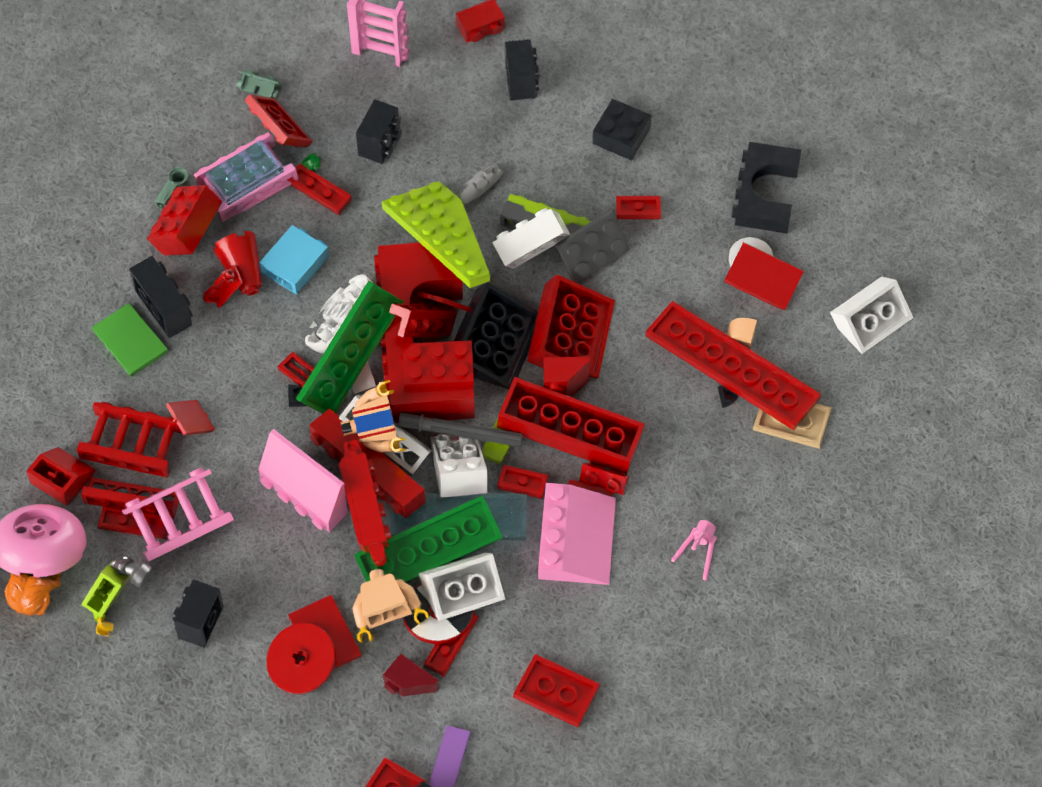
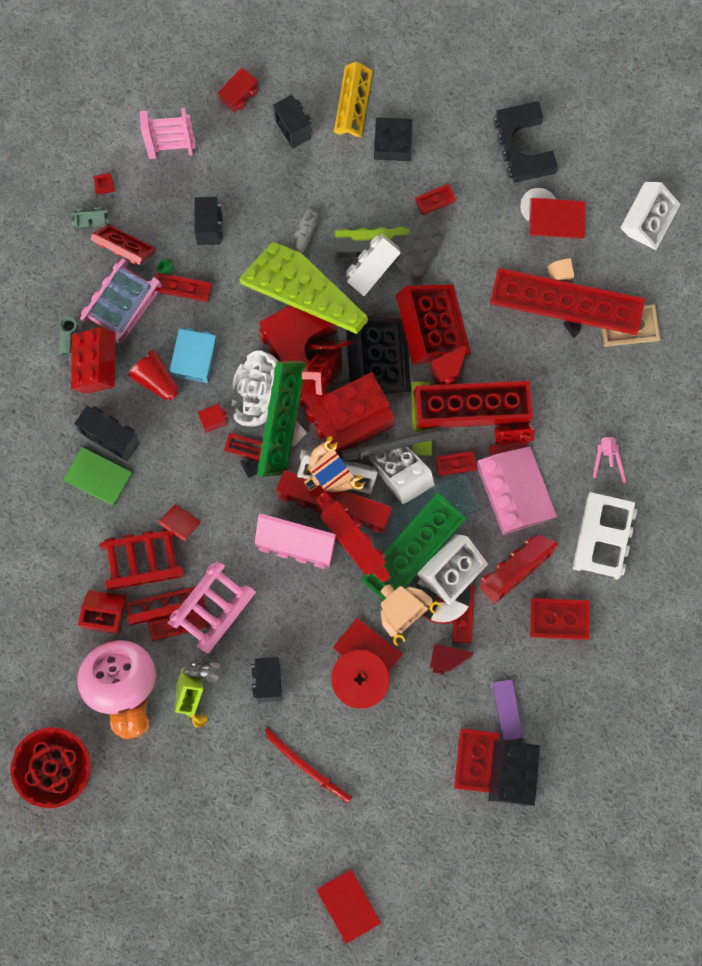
camera: 25 degrees left, 15 degrees up
(206, 752) = (325, 782): none -> red sword
(224, 287) = (151, 403): red hinge -> none
(281, 329) = (213, 418): none -> red brick
(291, 58) = (104, 184): none -> red tile
(534, 616) = (518, 567): none -> red slope
(593, 73) = (349, 97): none -> yellow fence
(639, 611) = (592, 531): none -> white window

